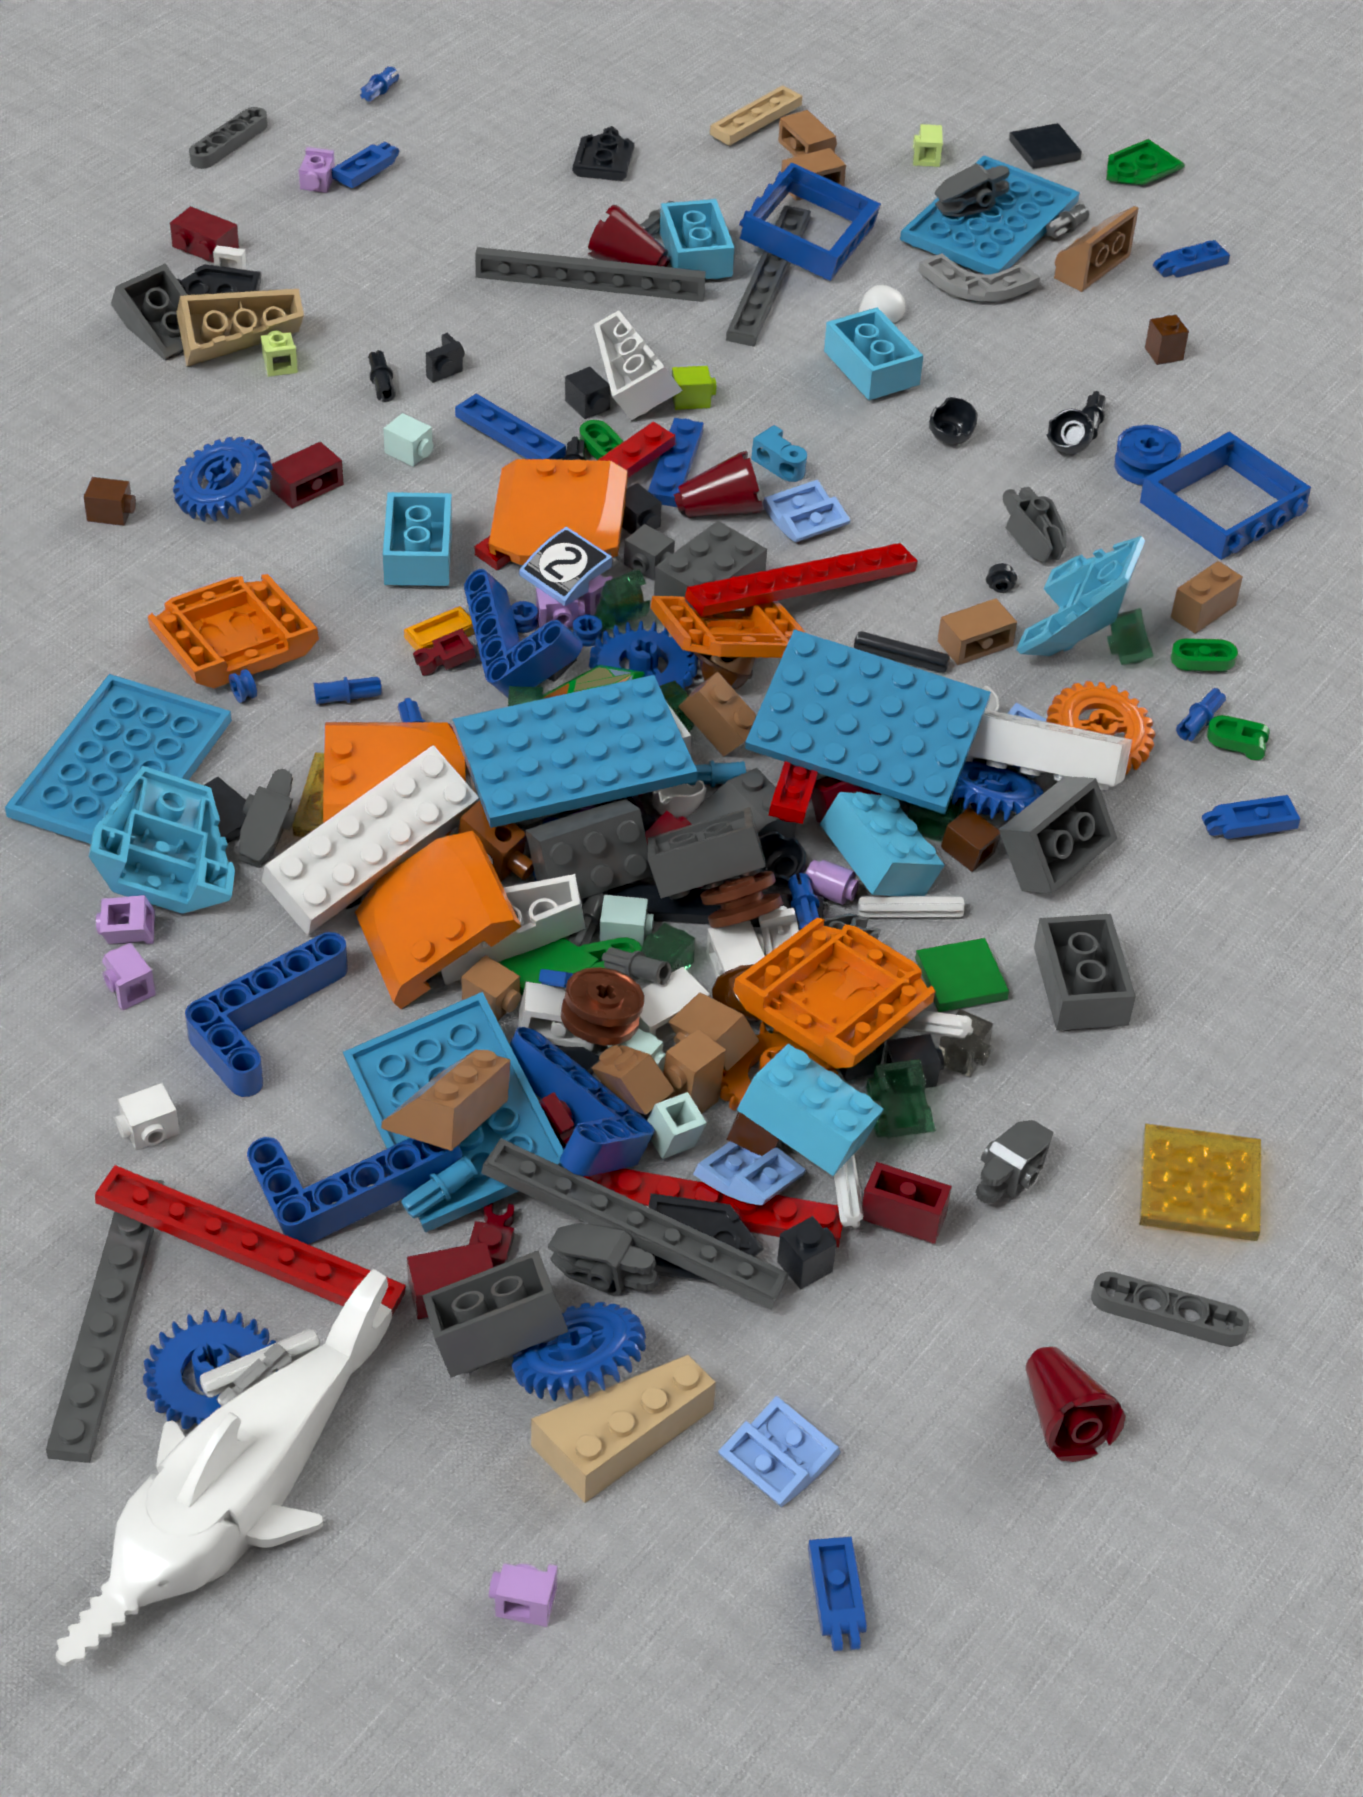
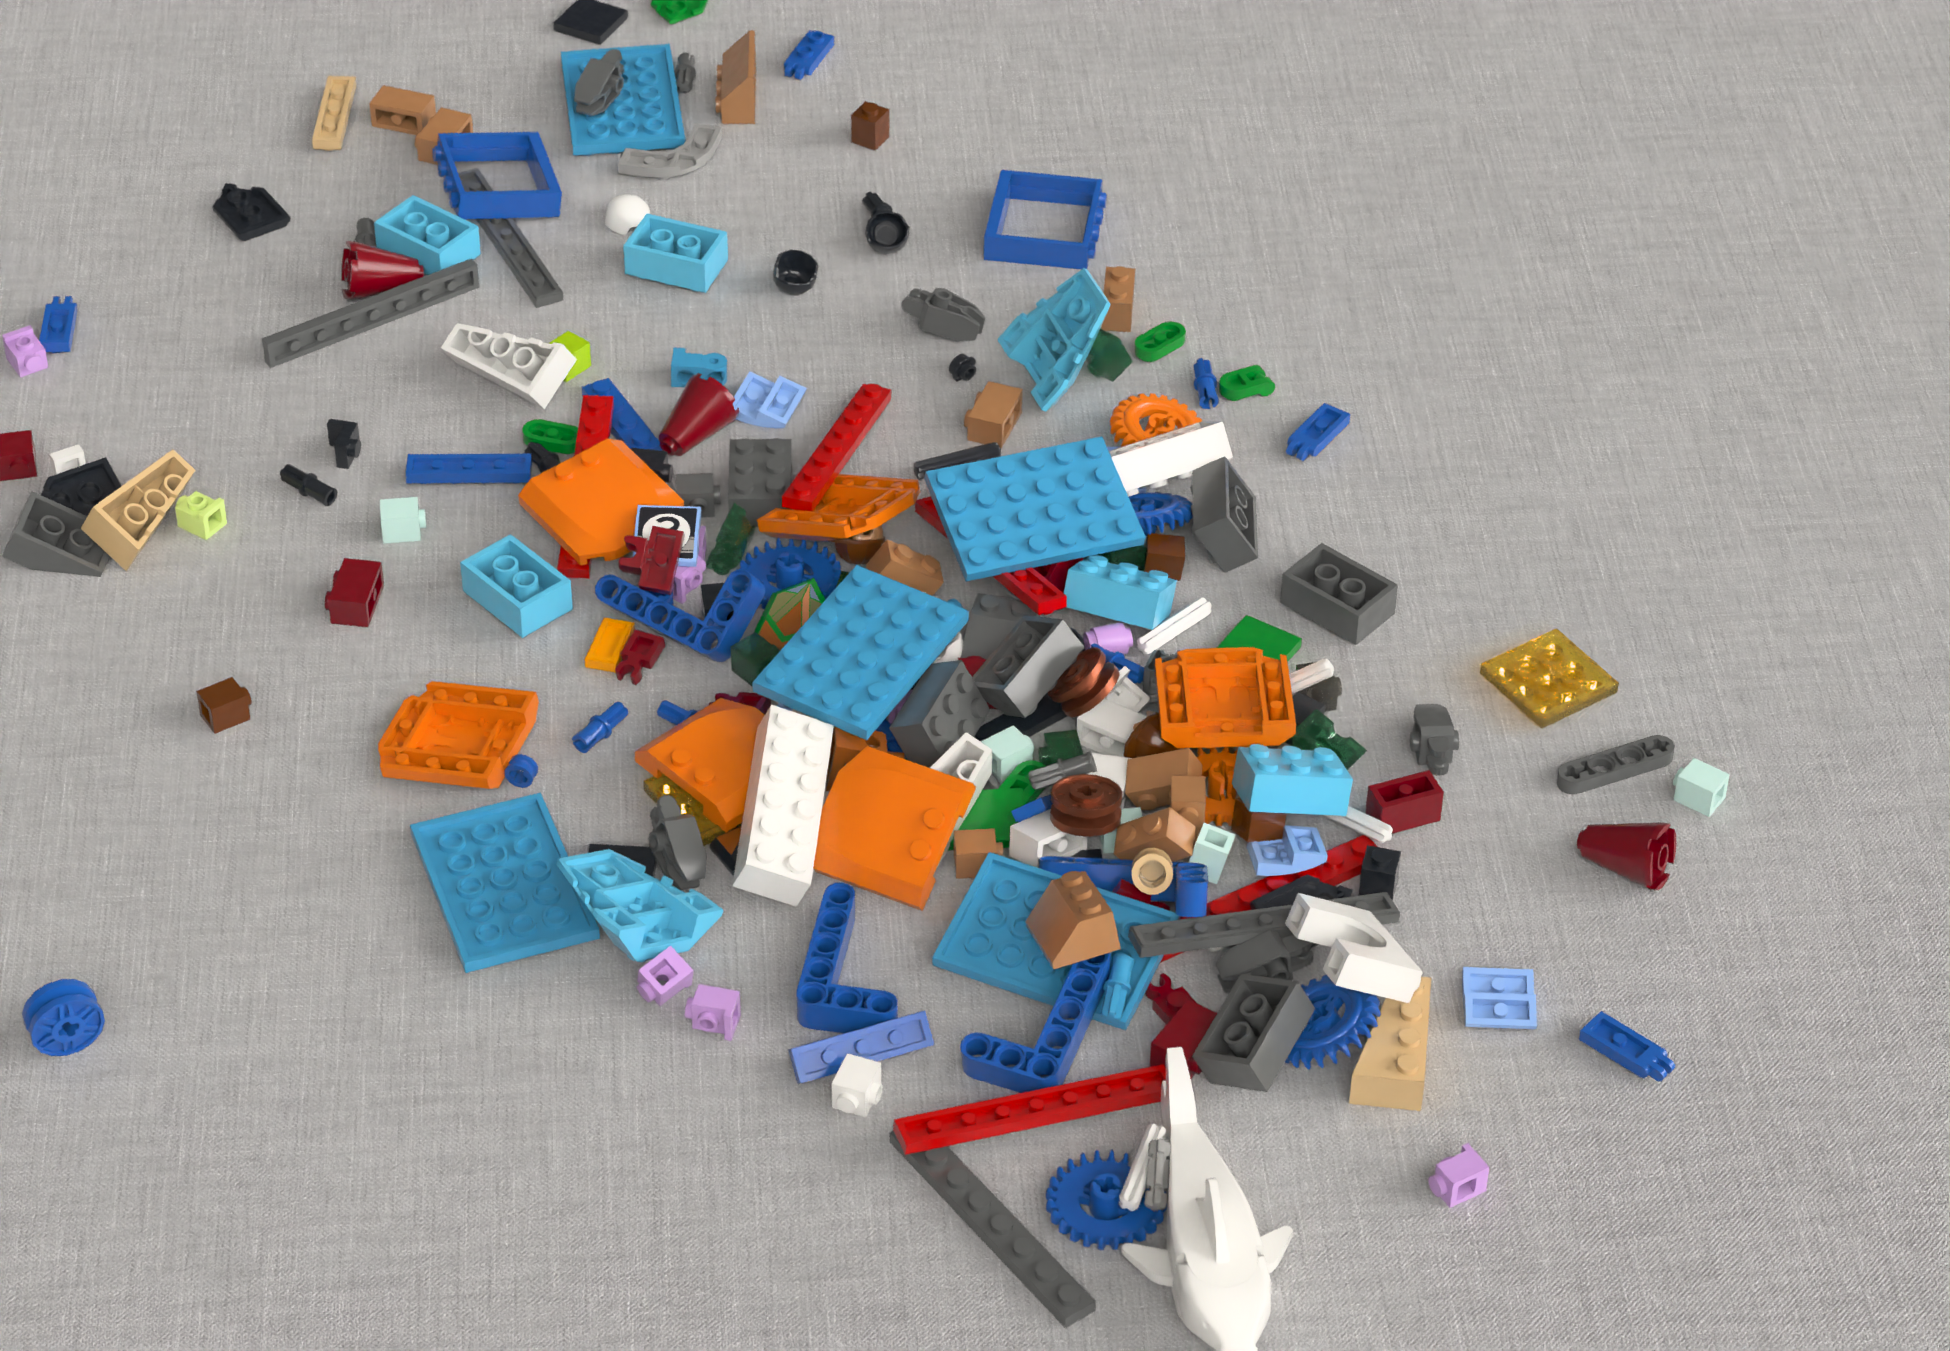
camera: 40 degrees left, 5 degrees down
(196, 1087) = (871, 1042): none -> plate
(224, 486) = (315, 648): blue gear -> none
(529, 578) = (654, 559): none -> dark red plate
(582, 1101) = (1152, 871): none -> tan piece
(587, 392) = (493, 405): black brick -> none
(588, 629) = (717, 573): blue bush -> none
(639, 1334) = (1362, 950): none -> white arch
(928, 146) = (506, 66): yellowish green brick -> none
(1144, 451) = (957, 220): blue wheel -> none
(1224, 1390) = (1700, 786): none -> light aqua brick

